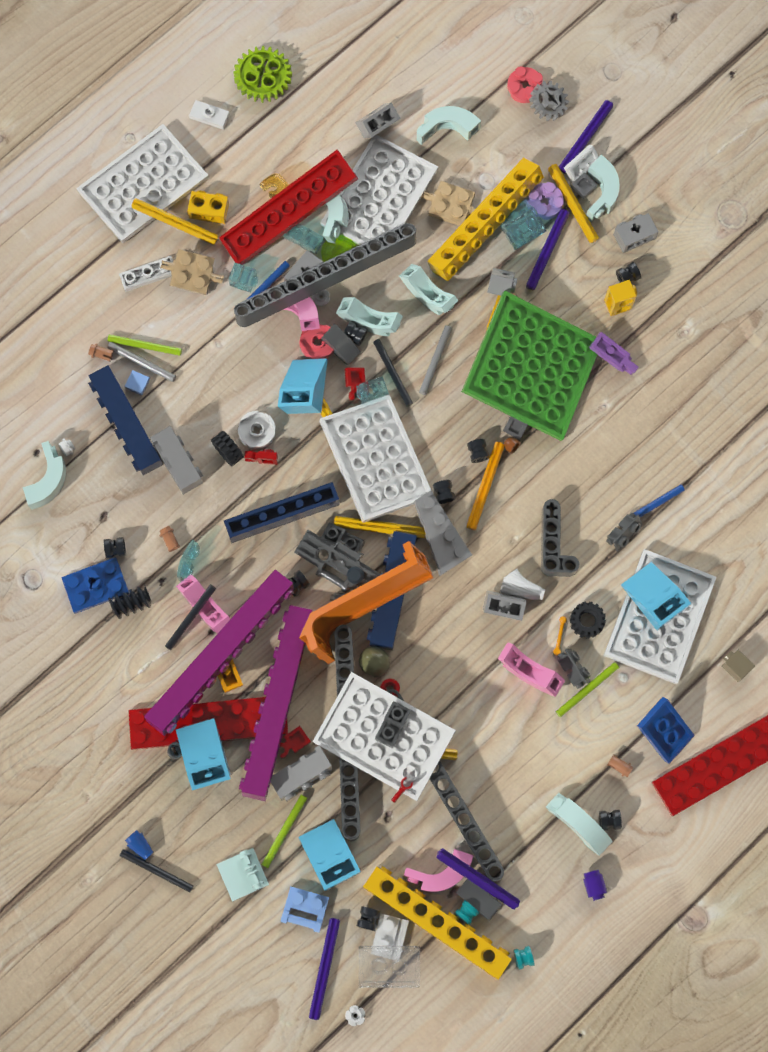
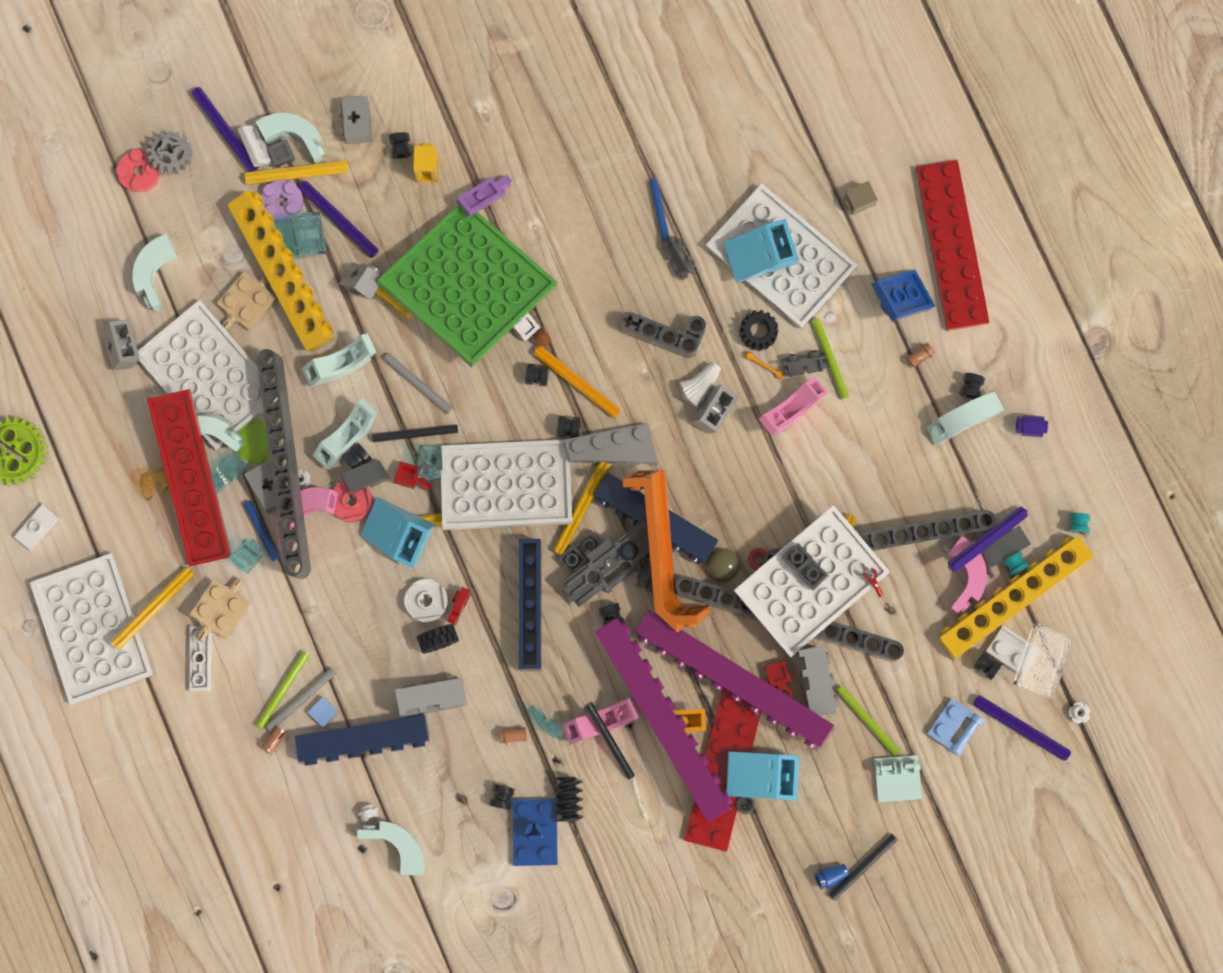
camera: 65 degrees left, 5 degrees up
(206, 211) = (154, 568): yellow brick -> none
(329, 855) = (910, 681): medium azure slope -> none

